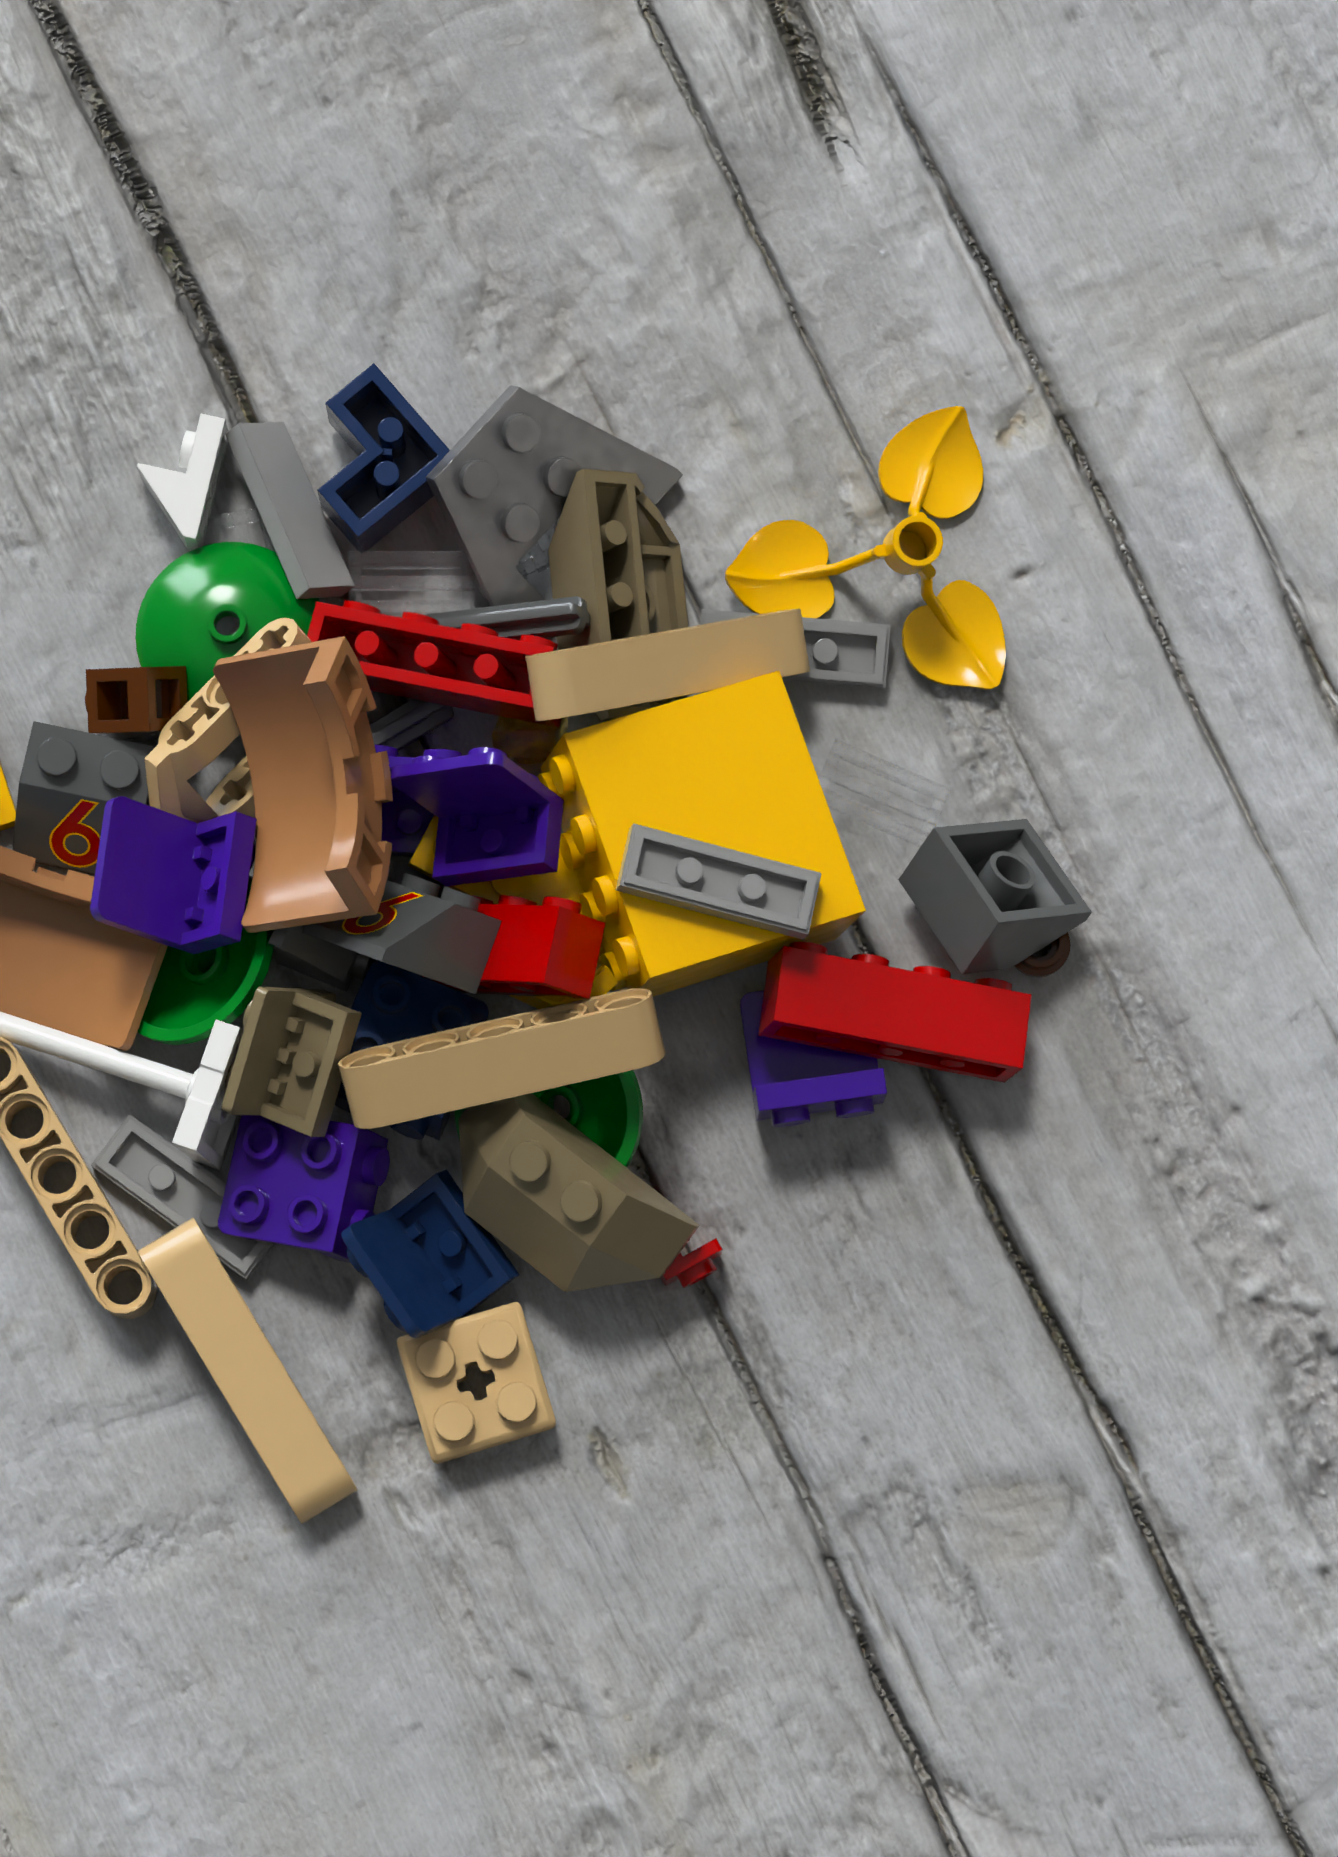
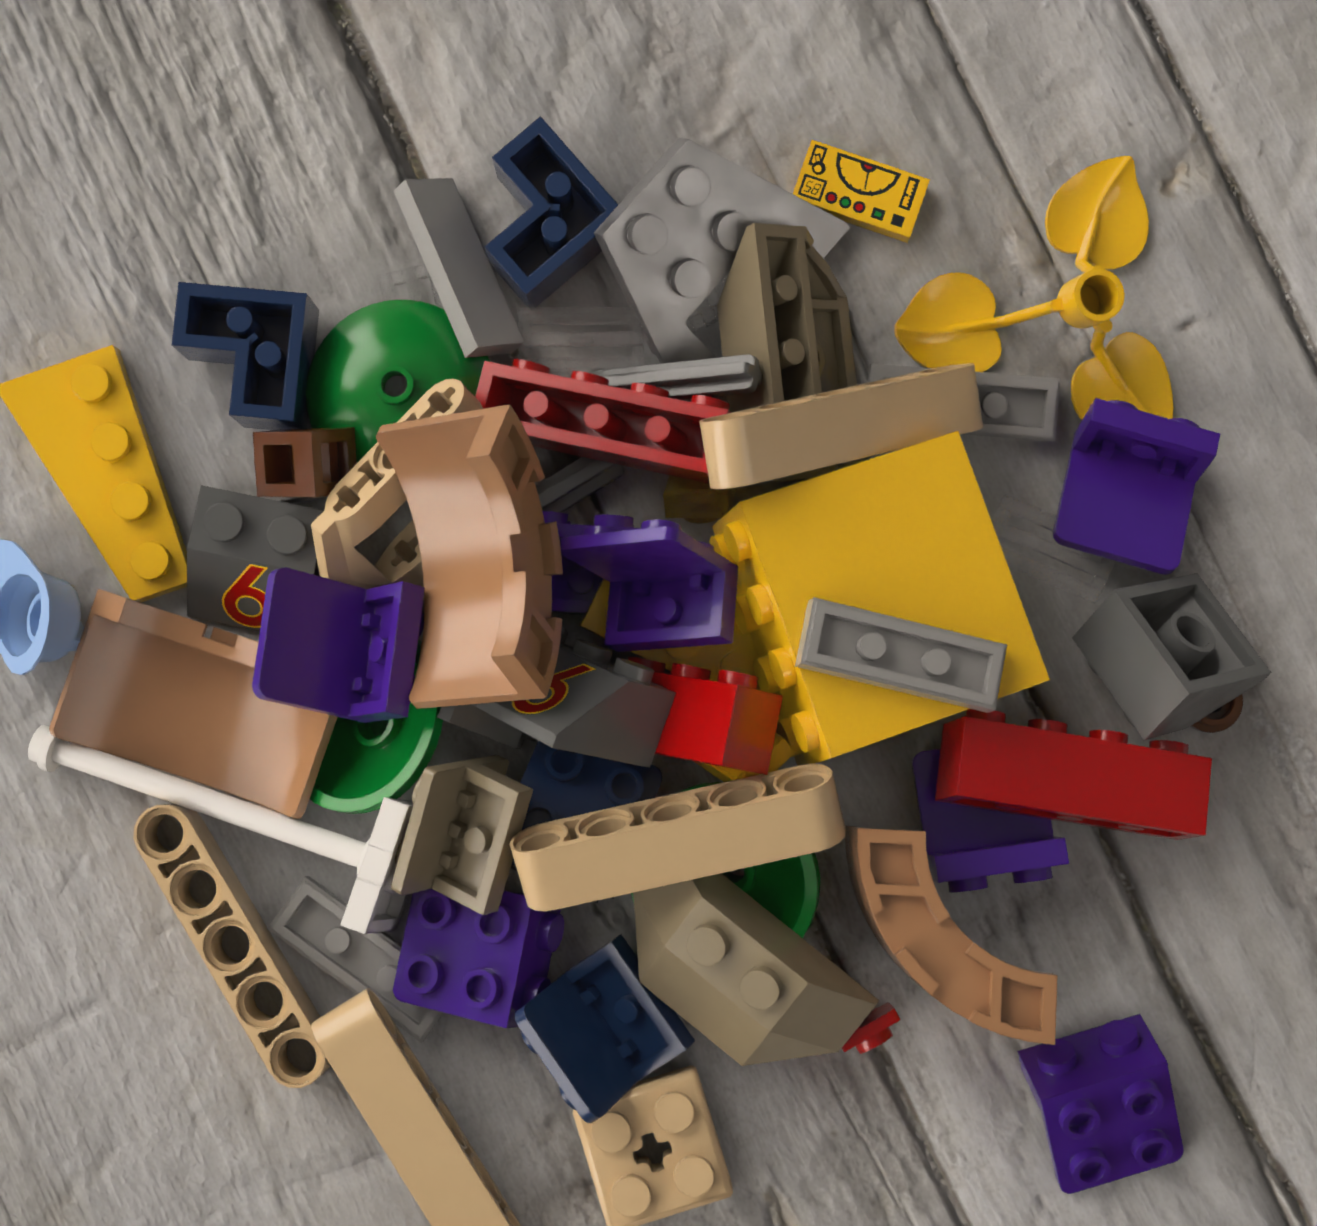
camera: 10 degrees right, 5 degrees up
(92, 574) = (265, 337): none -> dark blue brick
(189, 496) = (361, 252): white slope -> none
(694, 438) = (861, 190): none -> yellow tile
(751, 1176) = (917, 933): none -> medium nougat panel
(927, 1342) = (1104, 1103): none -> dark purple bracket
(958, 730) = (1132, 485): none -> dark purple bracket

